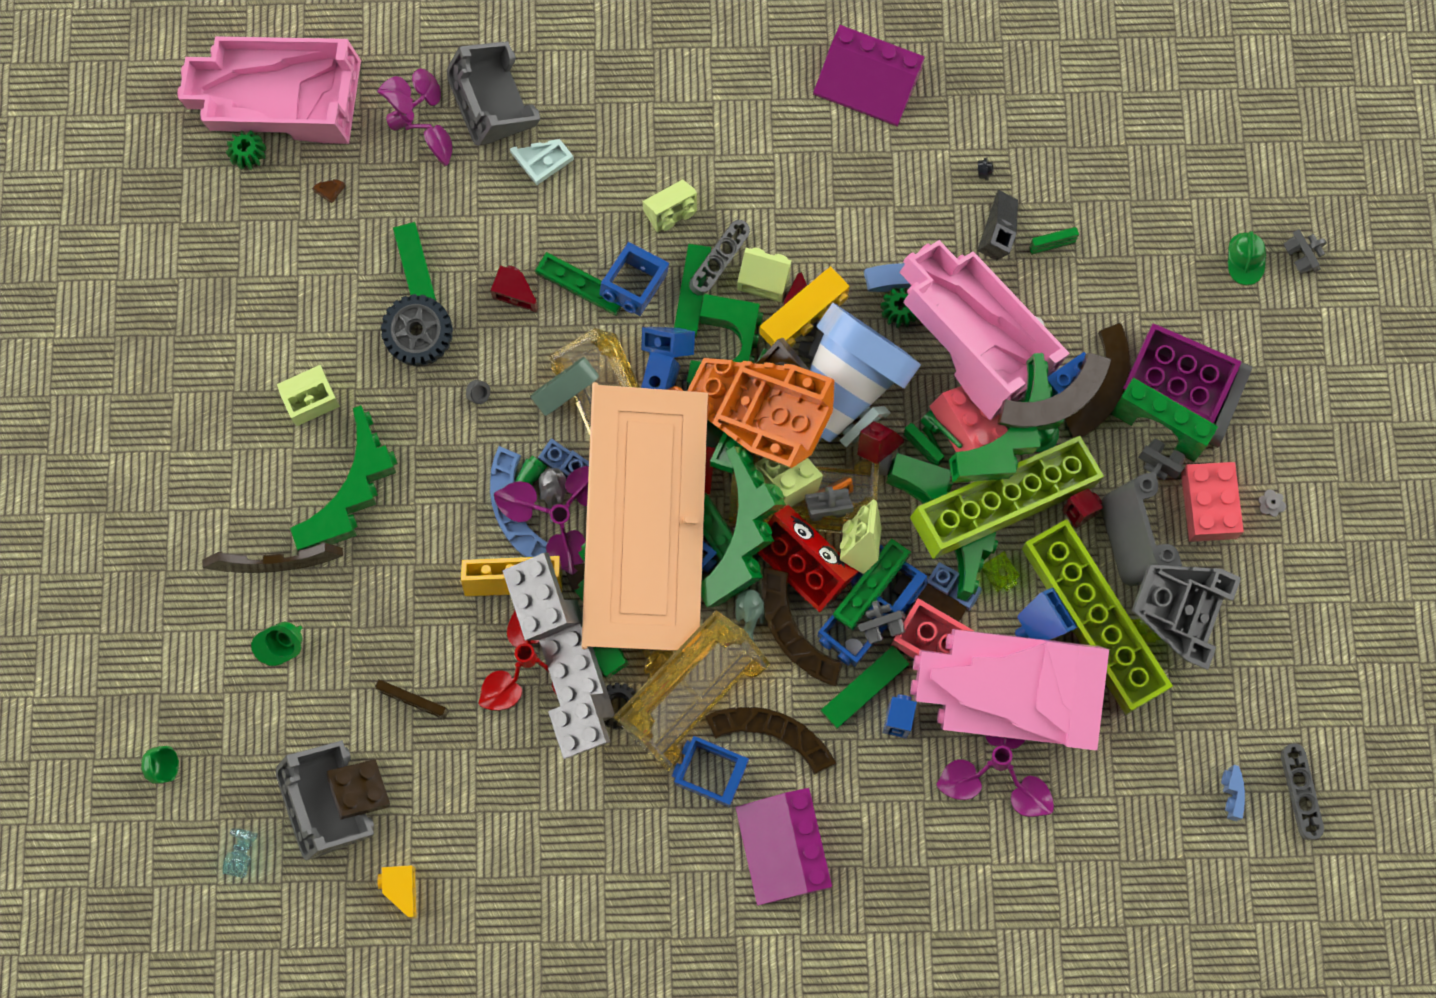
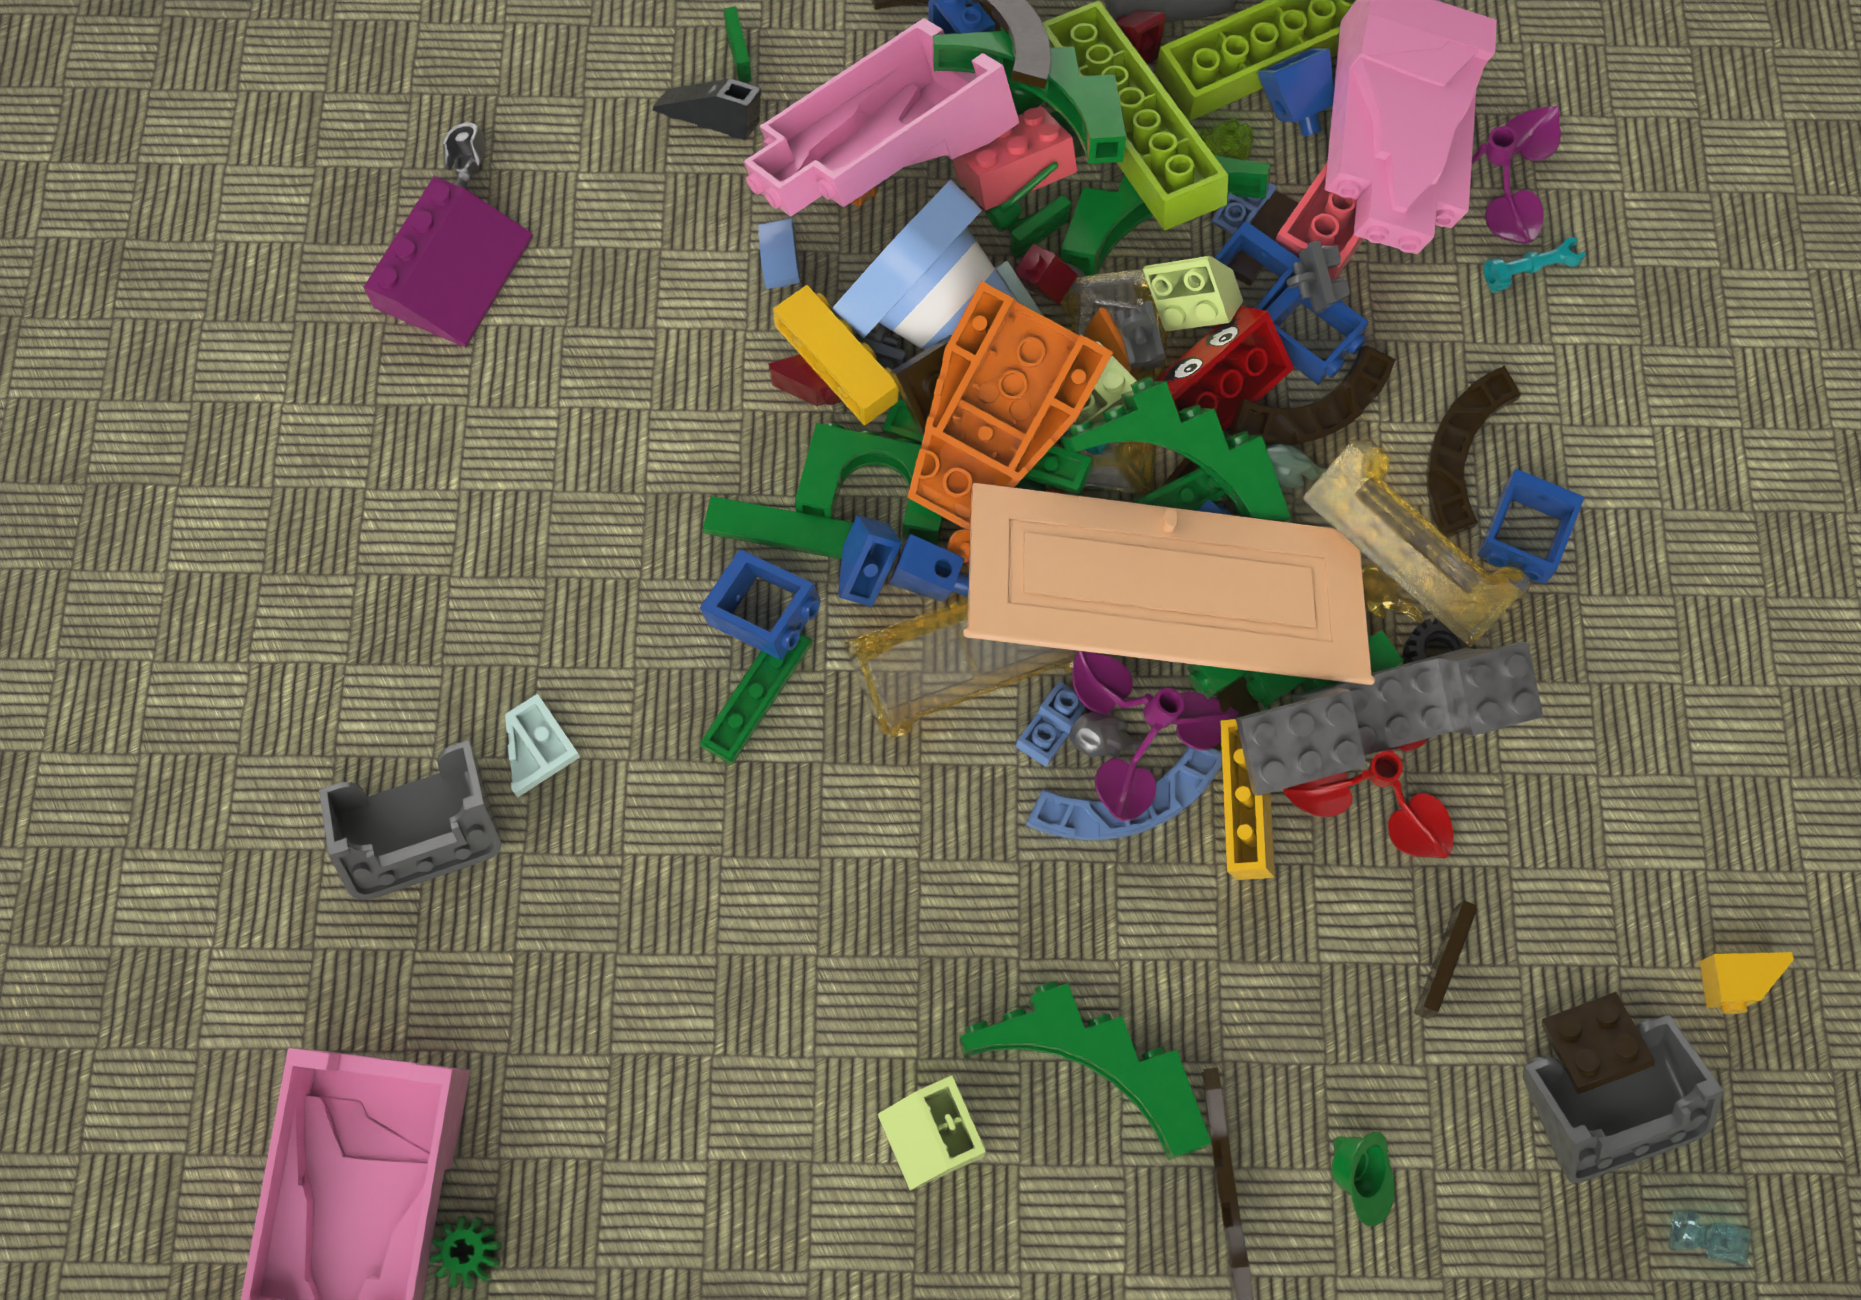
camera: 90 degrees left, 5 degrees down
(329, 189) = (553, 1104): reddish brown tile -> none
(398, 95) = (427, 950): magenta plant -> none
(412, 312) = (821, 977): wheel -> none
(413, 260) = (710, 955): green tile -> none
(477, 391) = (934, 854): dark grey tile -> none
(513, 288) = (761, 791): dark red slope -> none
(531, 470) = (1073, 773): green cone -> none
(564, 386) = (937, 711): sand green beam -> none
(671, 205) = (639, 544): yellowish green slope -> none
(719, 257) = (727, 485): dark grey beam -> none
(764, 274) = (767, 415): yellowish green slope -> none
(783, 847) = (1629, 434): magenta slope -> none
(853, 646) = (1331, 338): white sticker -> none
(864, 687) = (1396, 328): green tile -> none
(872, 584) = (1260, 291): green tile -> none
(891, 310) = (828, 243): green gear -> none
(899, 716) = (1443, 272): blue brick -> none
(921, 788) = (1498, 273): none -> teal piece
(956, 76) = (464, 148): none -> flat silver piece
(985, 169) = (618, 122): black plate -> none

